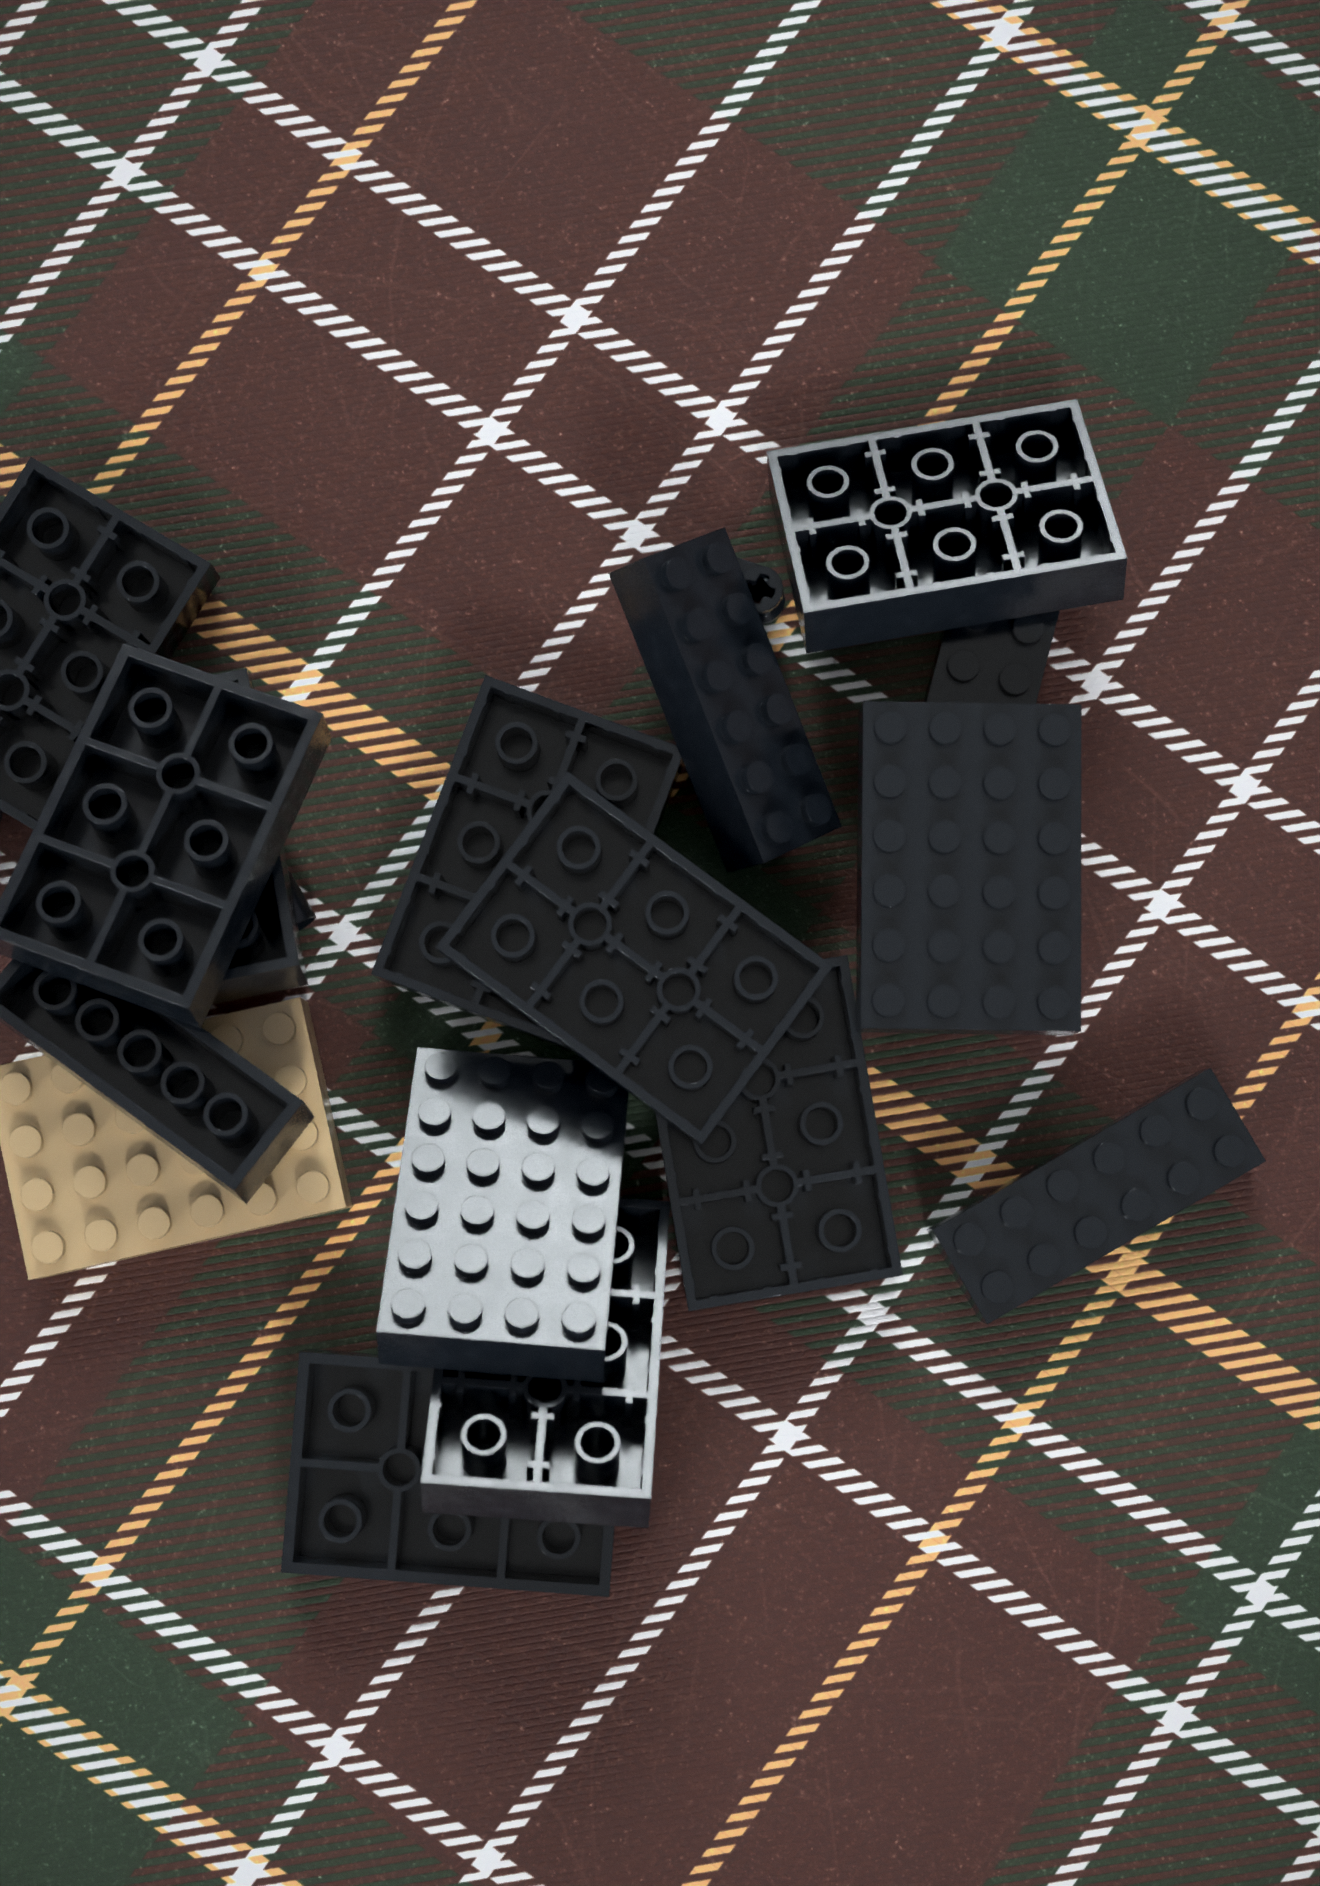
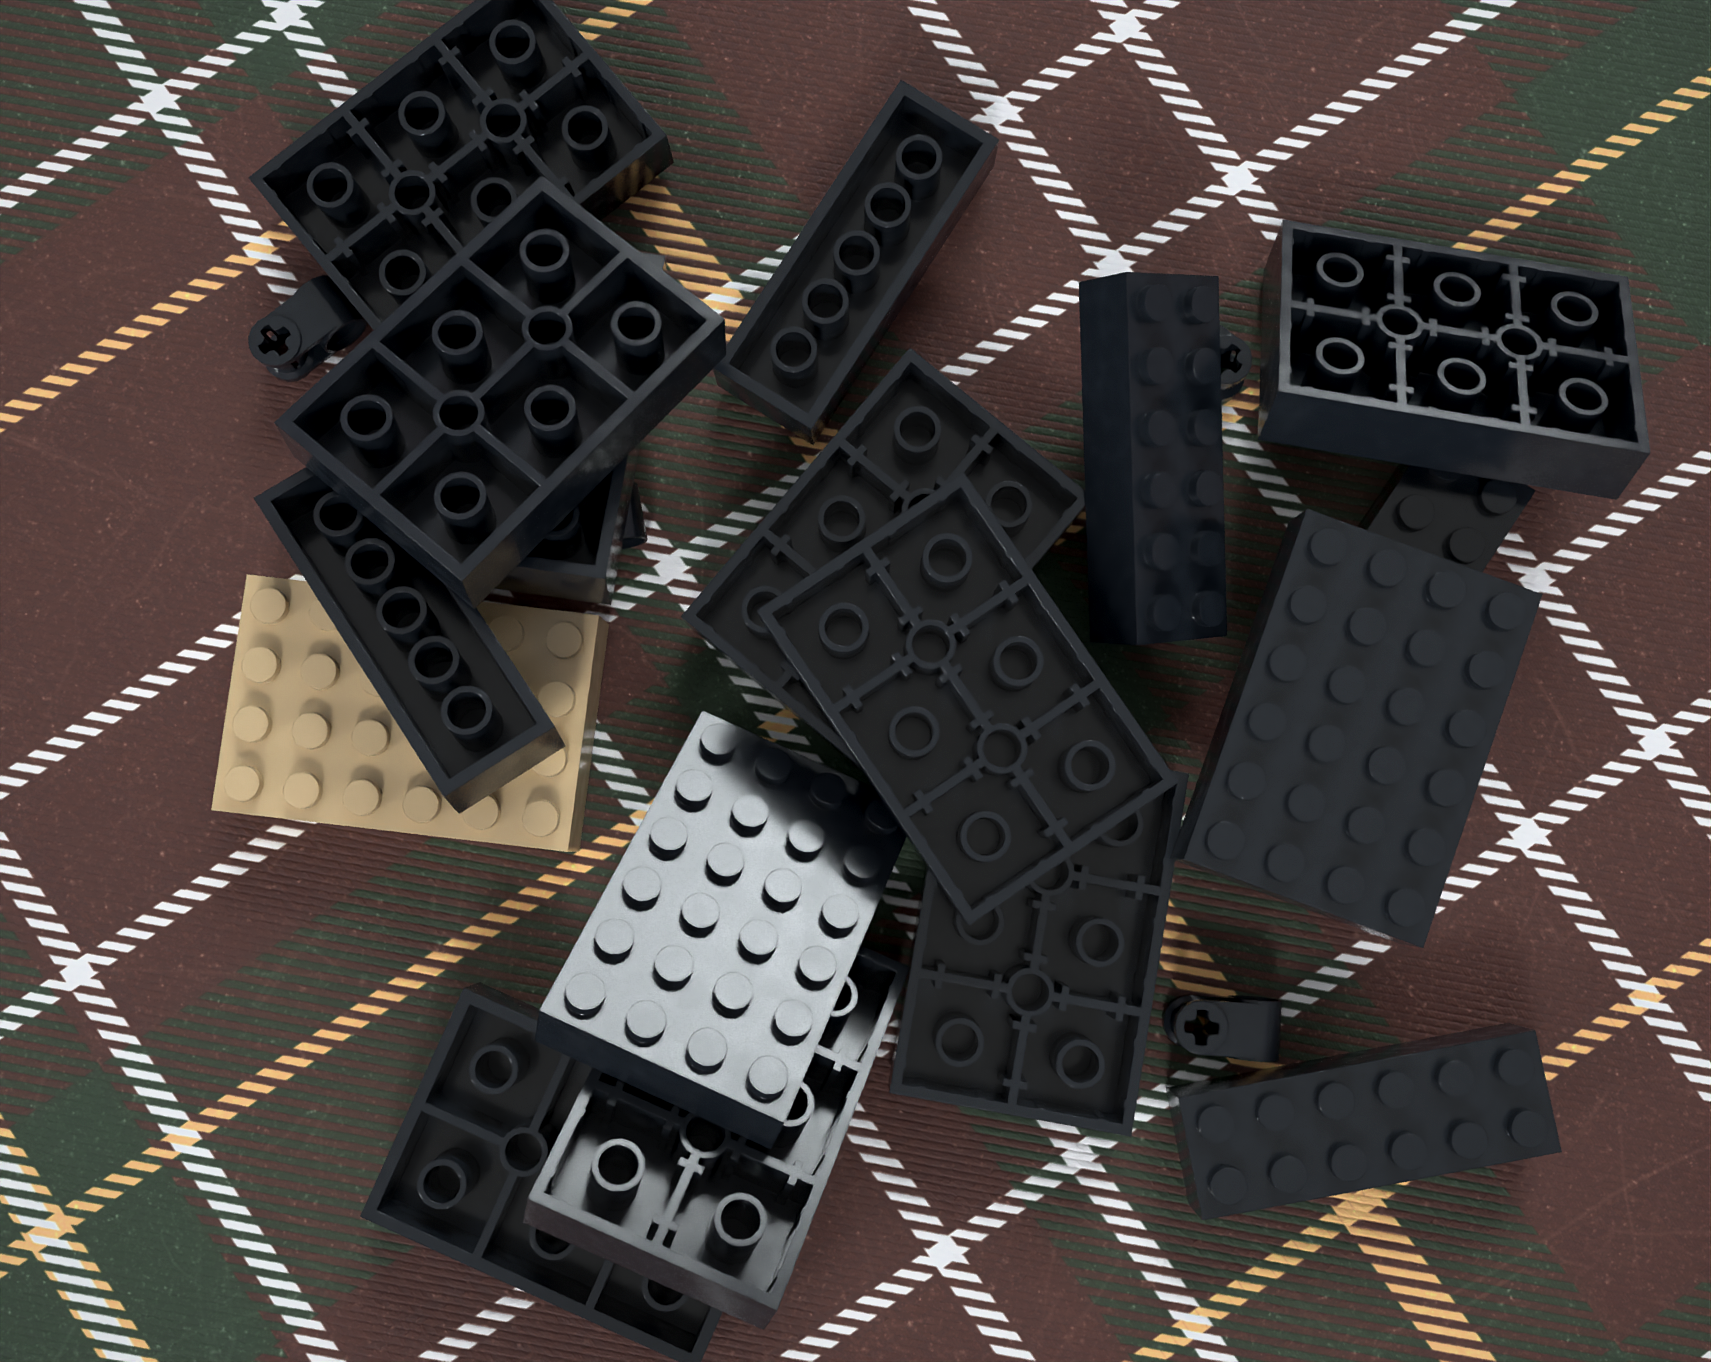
camera: 20 degrees right, 0 degrees up
(413, 614) = (856, 262): none -> black brick
(964, 1157) = (1233, 1026): none -> black piece

